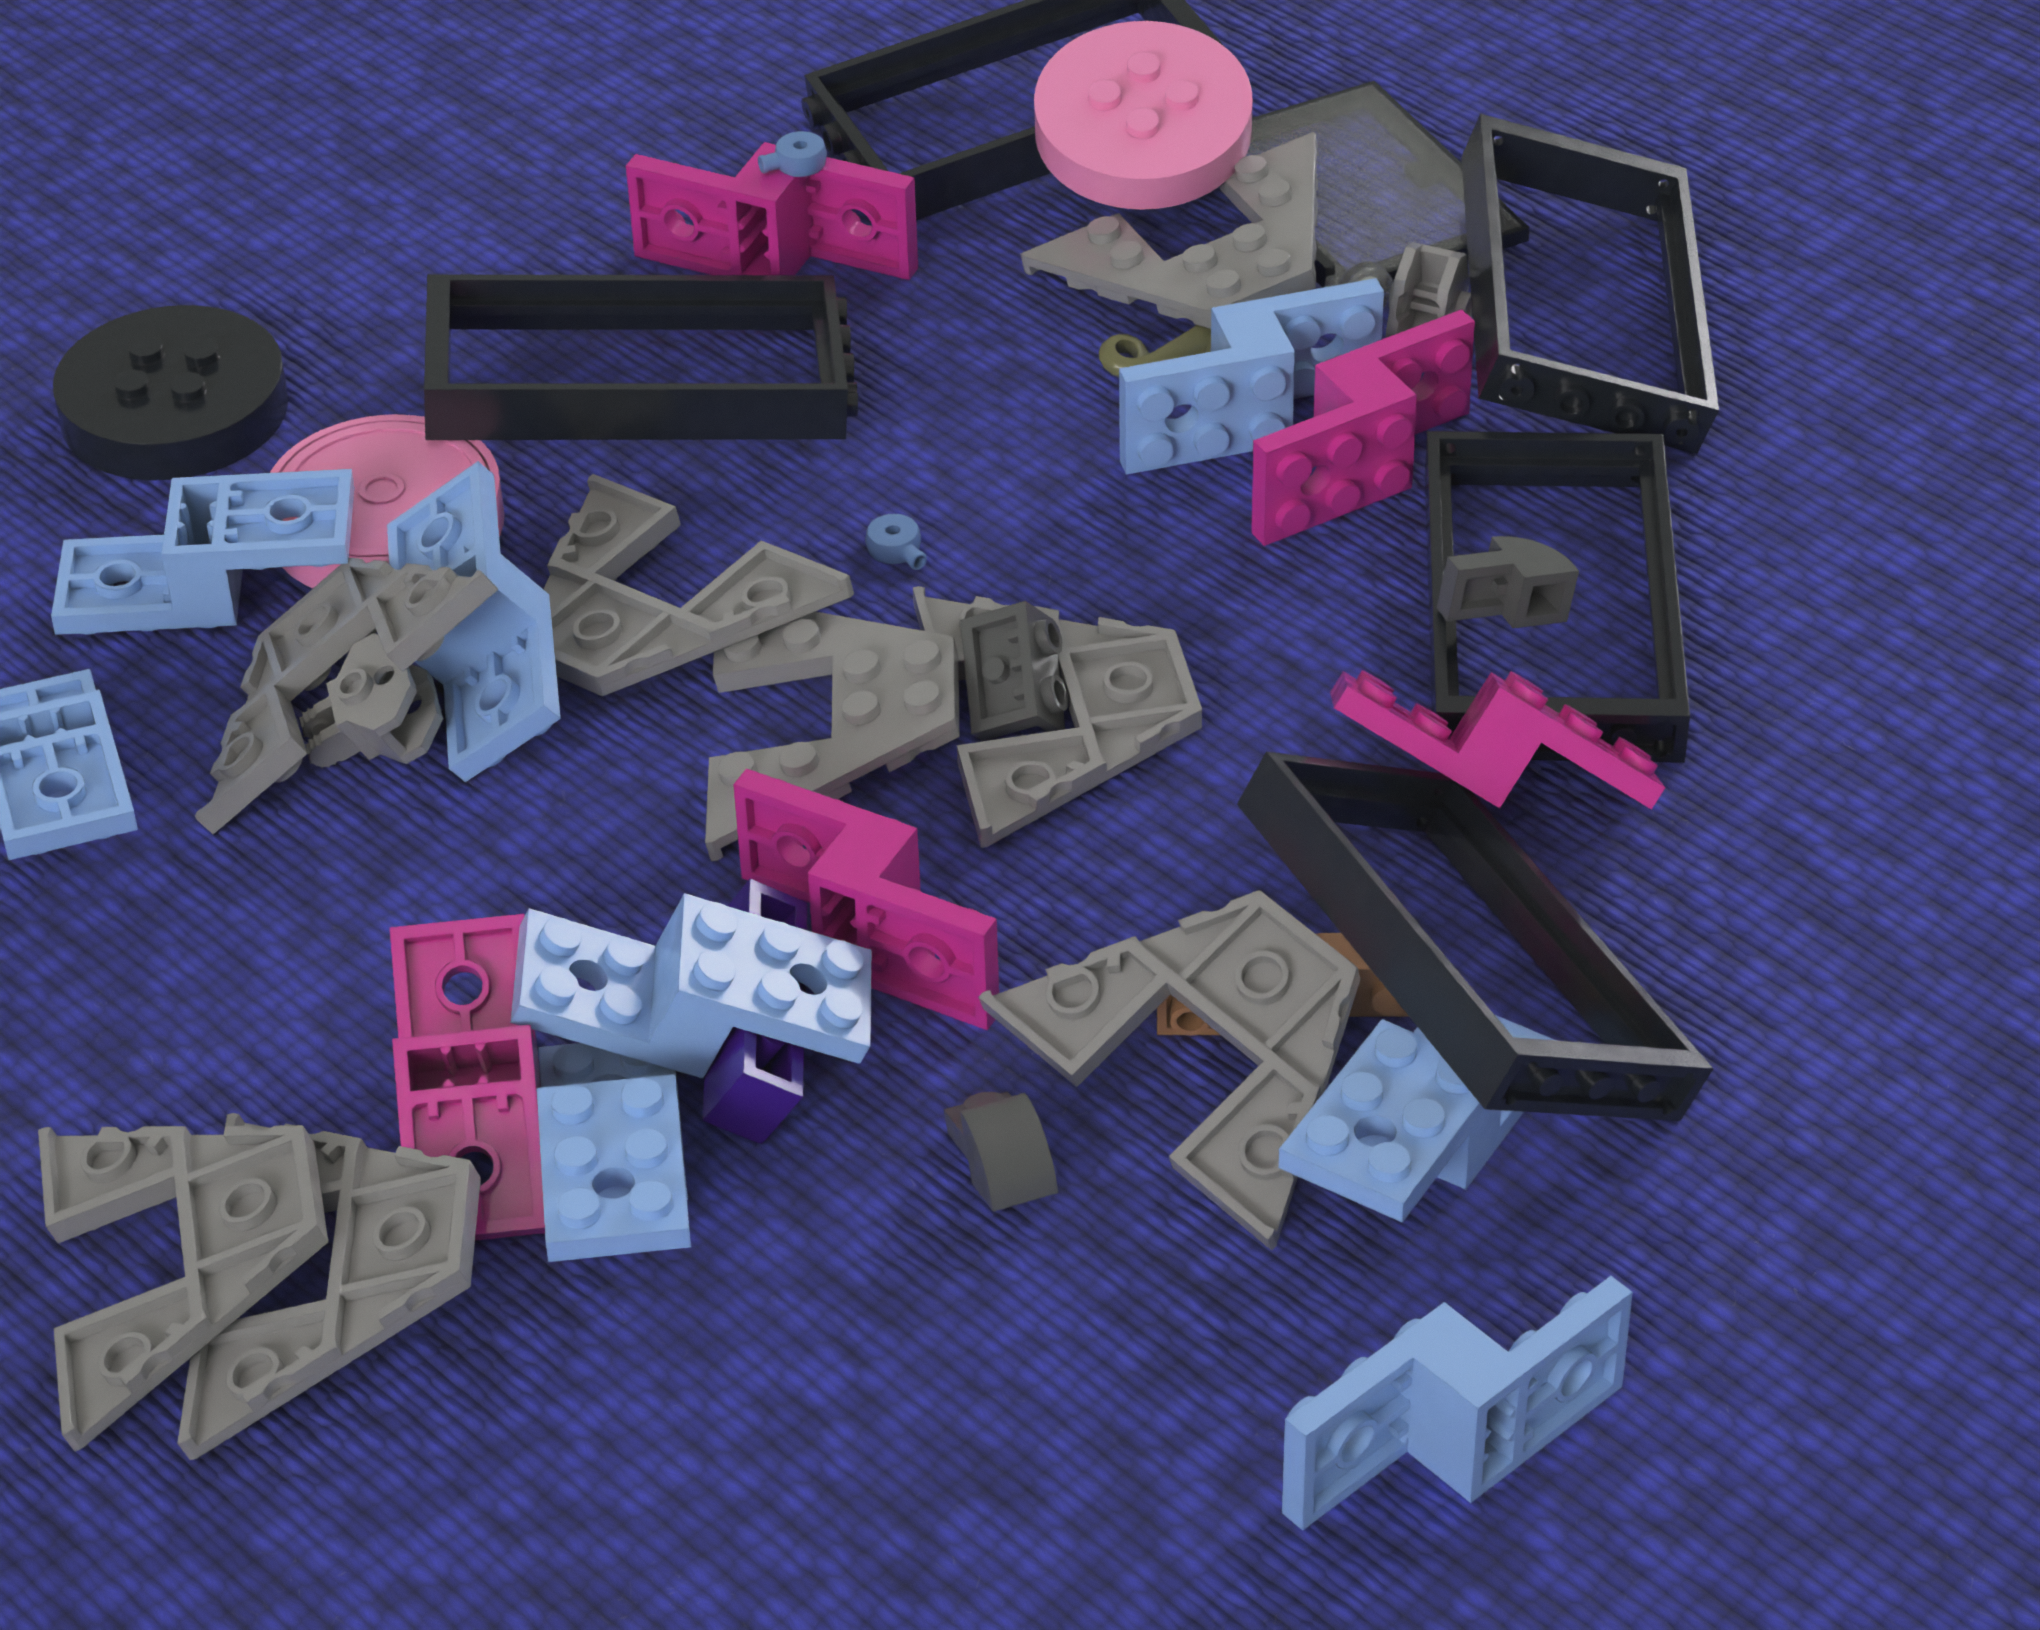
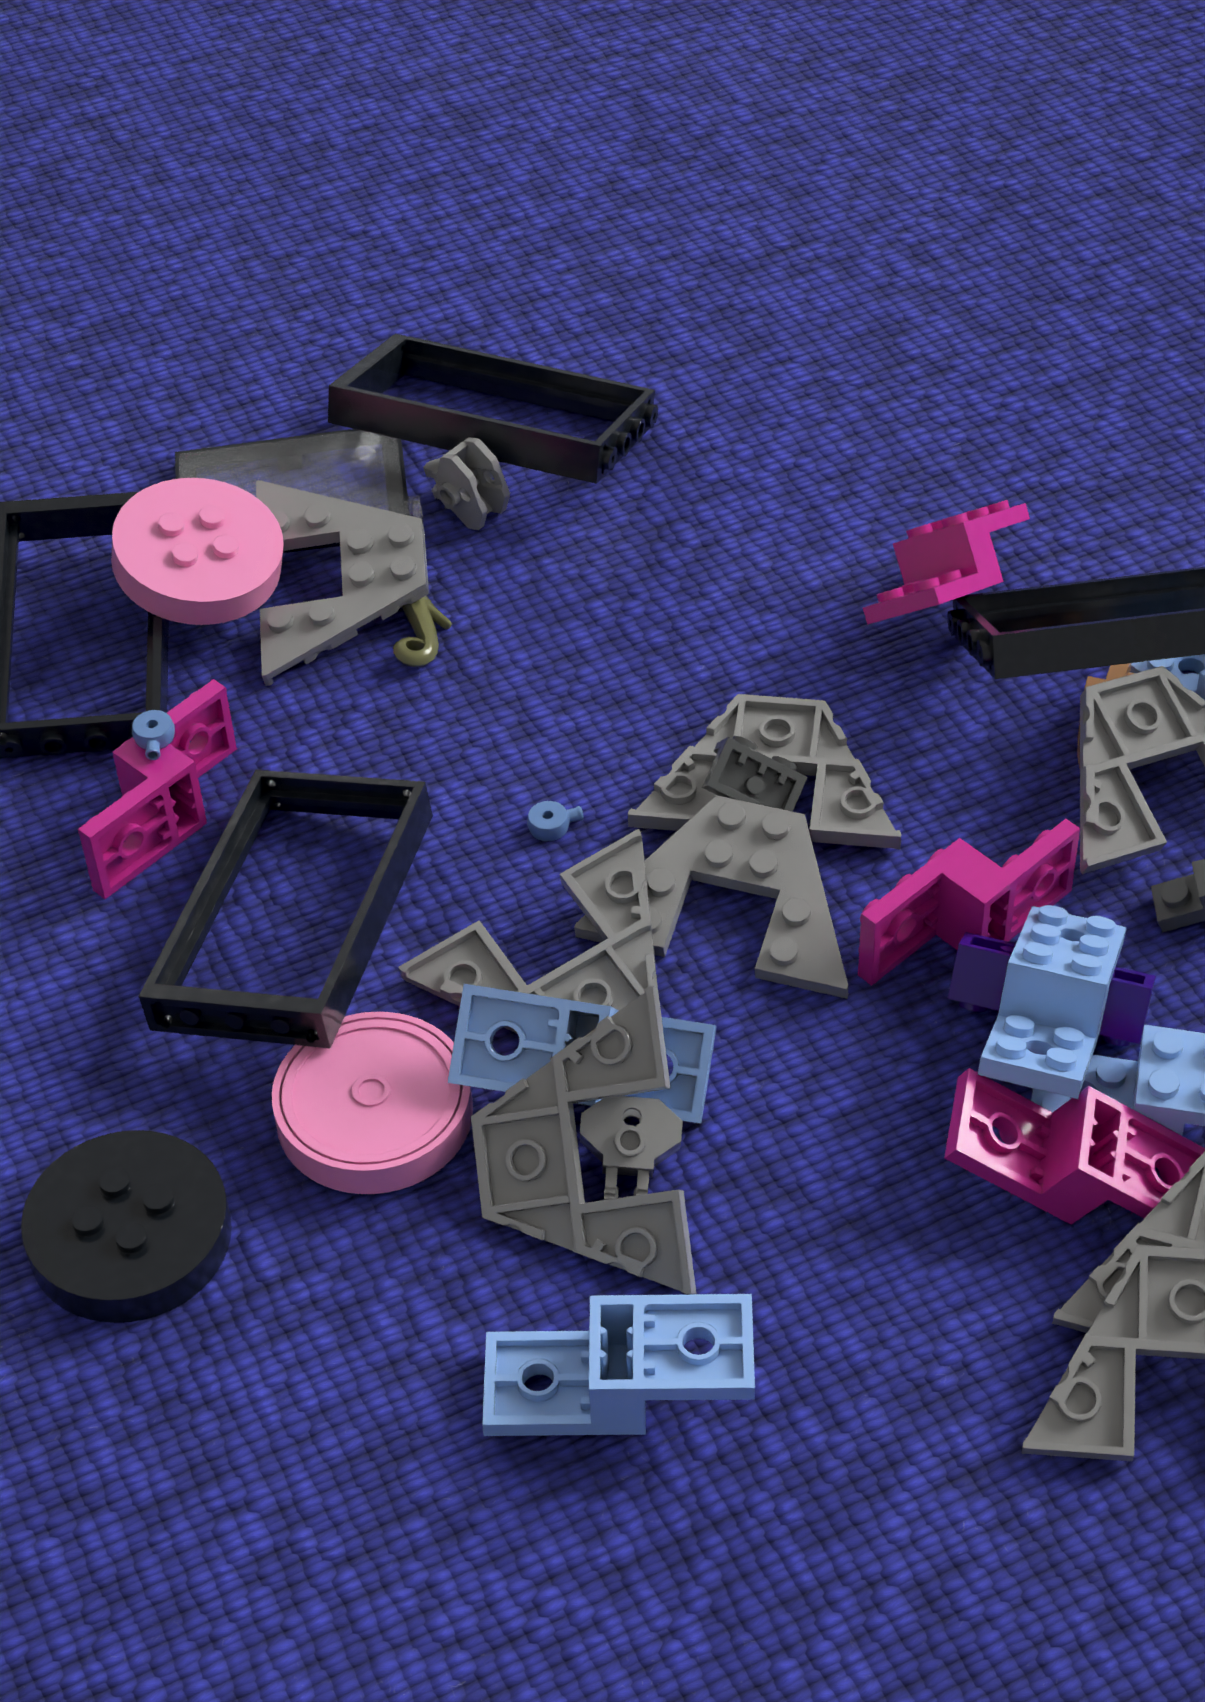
camera: 70 degrees left, 5 degrees up
(208, 539) = (393, 1222): light blue bracket -> none
(1247, 380) = (506, 585): light blue bracket -> none
(1362, 427) = (592, 546): dark pink bracket -> none
(1513, 579) = (799, 515): dark grey brick -> none
(1567, 461) = (779, 463): black door -> none

